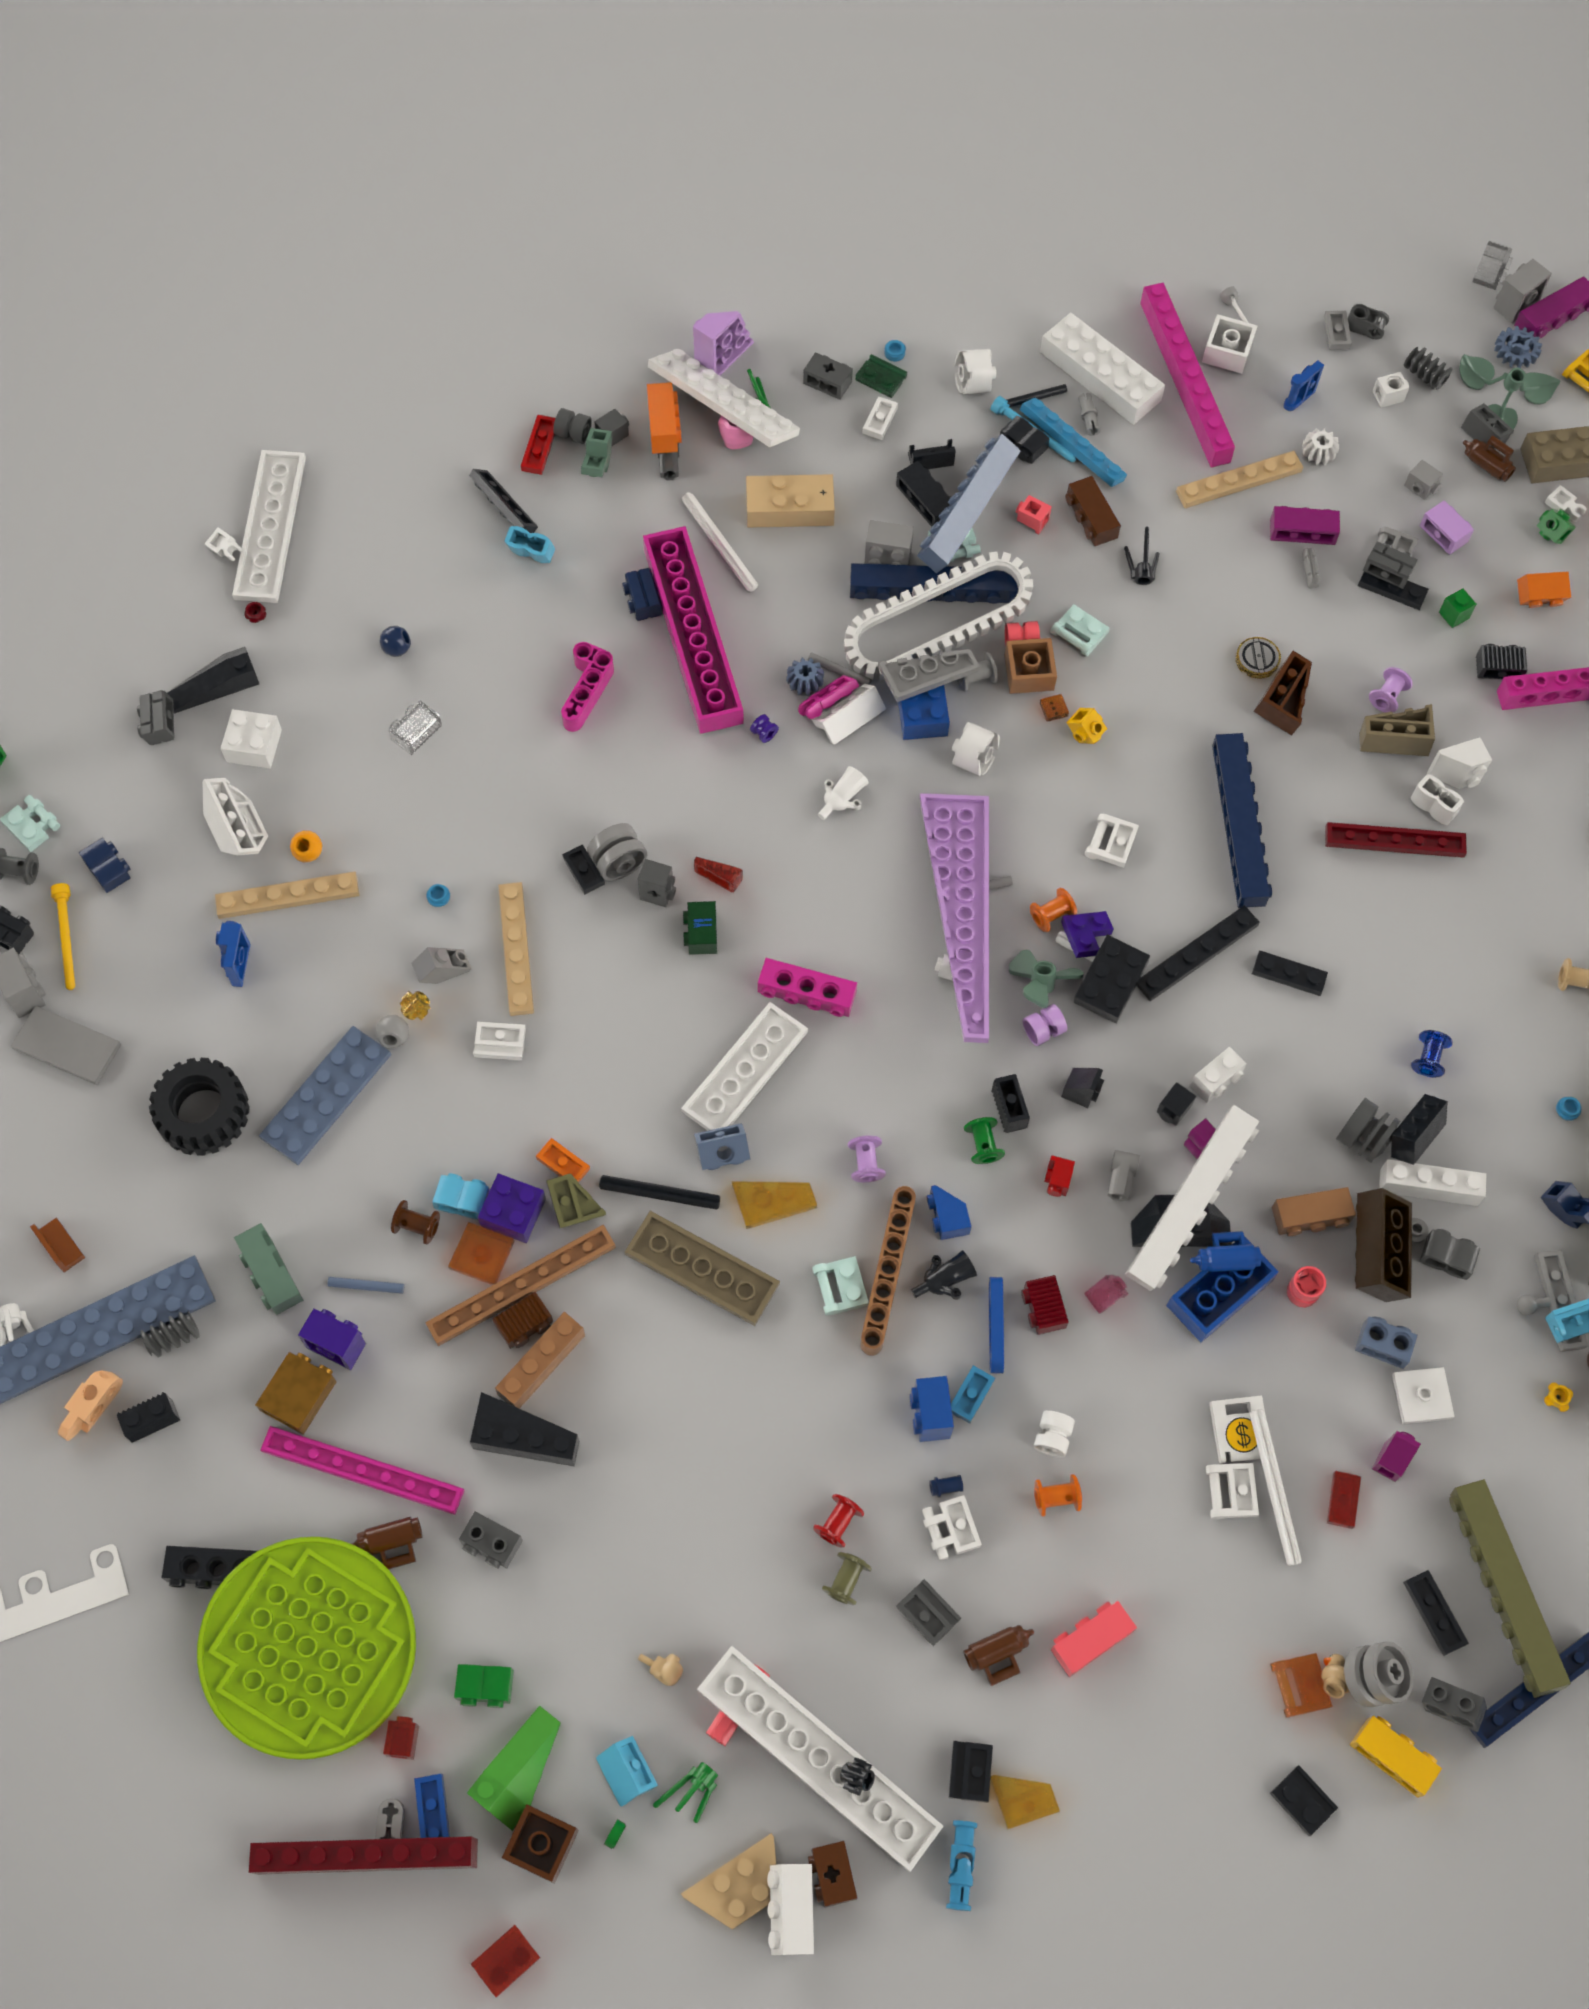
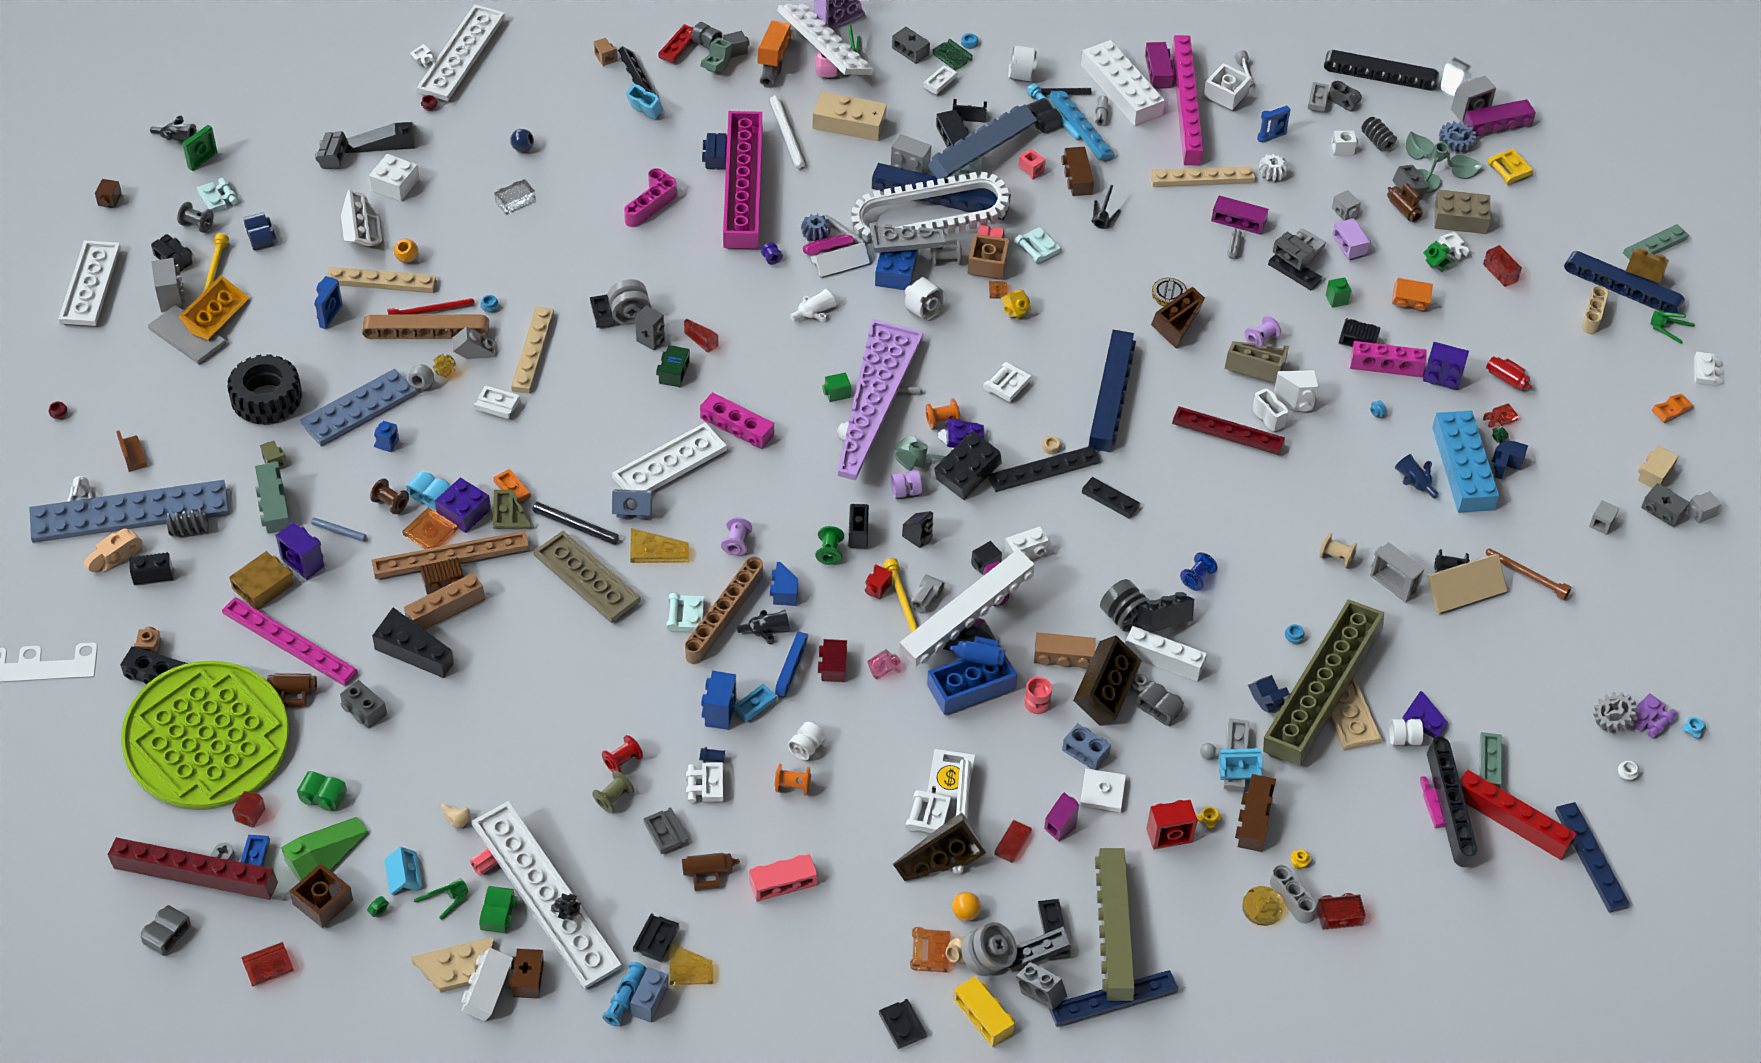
camera: 15 degrees right, 15 degrees down
(89, 1000) = (213, 308): none -> light orange slope
(189, 1534) = (148, 639): none -> medium nougat brick
(244, 1201) = (272, 454): none -> olive brick
(325, 943) = (432, 308): none -> red piece
(359, 1952) = (165, 930): none -> dark grey brick
(369, 952) = (422, 326): none -> medium nougat beam
(378, 1132) = (386, 436): none -> blue brick
(452, 479) = (605, 51): none -> medium nougat brick
(764, 1792) = (497, 909): none -> green brick
(912, 904) = (837, 387): none -> green brick
(993, 1859) = (649, 994): none -> sand blue brick
(1068, 1149) = (893, 566): none -> yellow piece
(1136, 331) = (1159, 65): none -> magenta brick
(1194, 916) = (1051, 445): none -> tan tile
(1276, 1539) = (947, 847): none -> dark brown wedge
(1326, 1615) = (966, 906): none -> light orange piece
(1398, 273) = (1381, 70): none -> black beam
(1438, 1648) = (1041, 948): none -> plate
(1526, 1426) = (1171, 824): none -> red brick
(1557, 761) = (1378, 408): none -> dark azure plate

